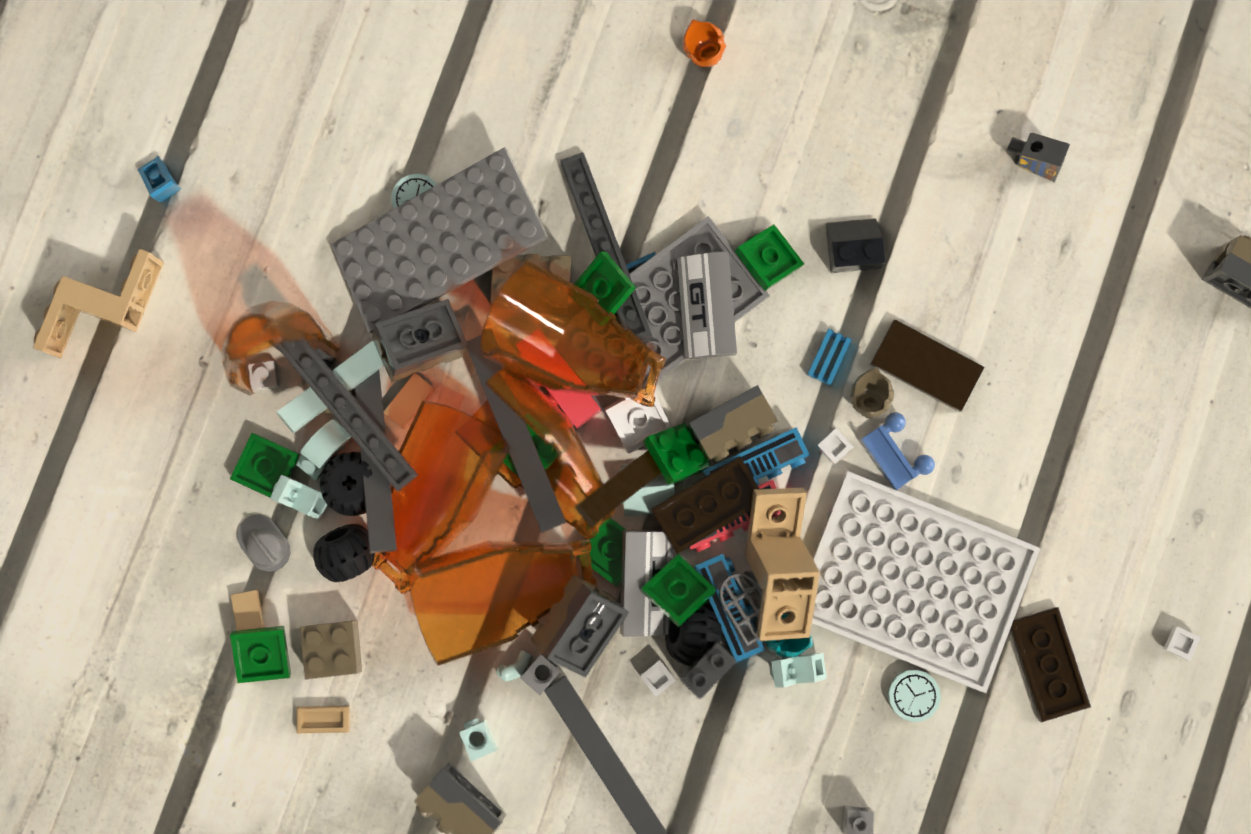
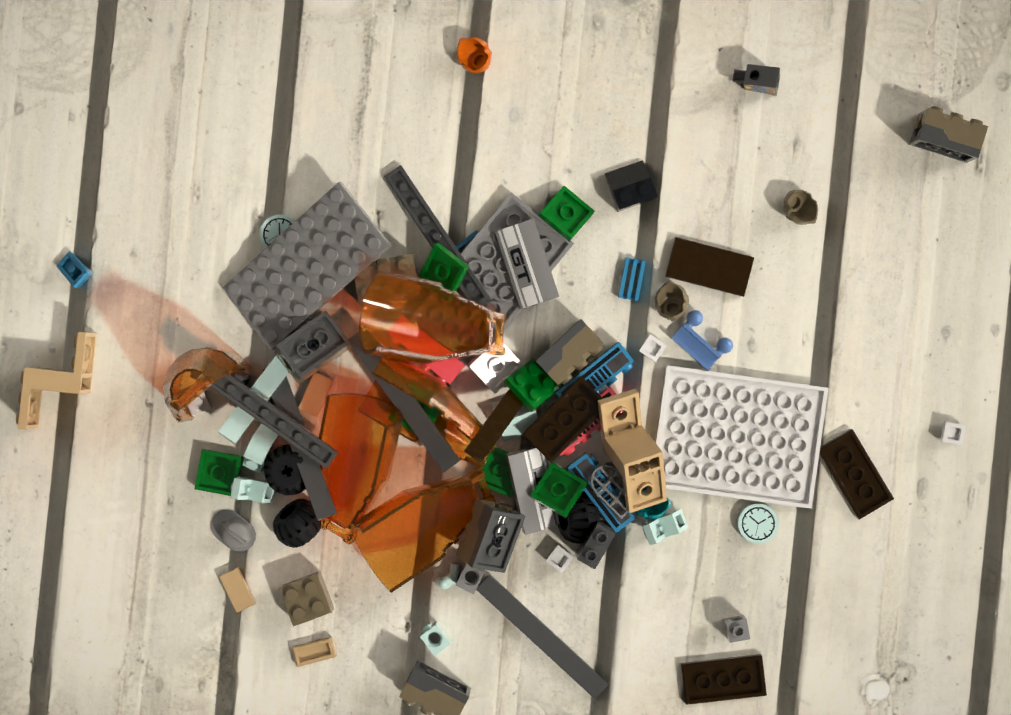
camera: 15 degrees left, 5 degrees up
(260, 654) = (254, 615): green plate -> none
(1055, 320) = (800, 207): none -> dark tan hair

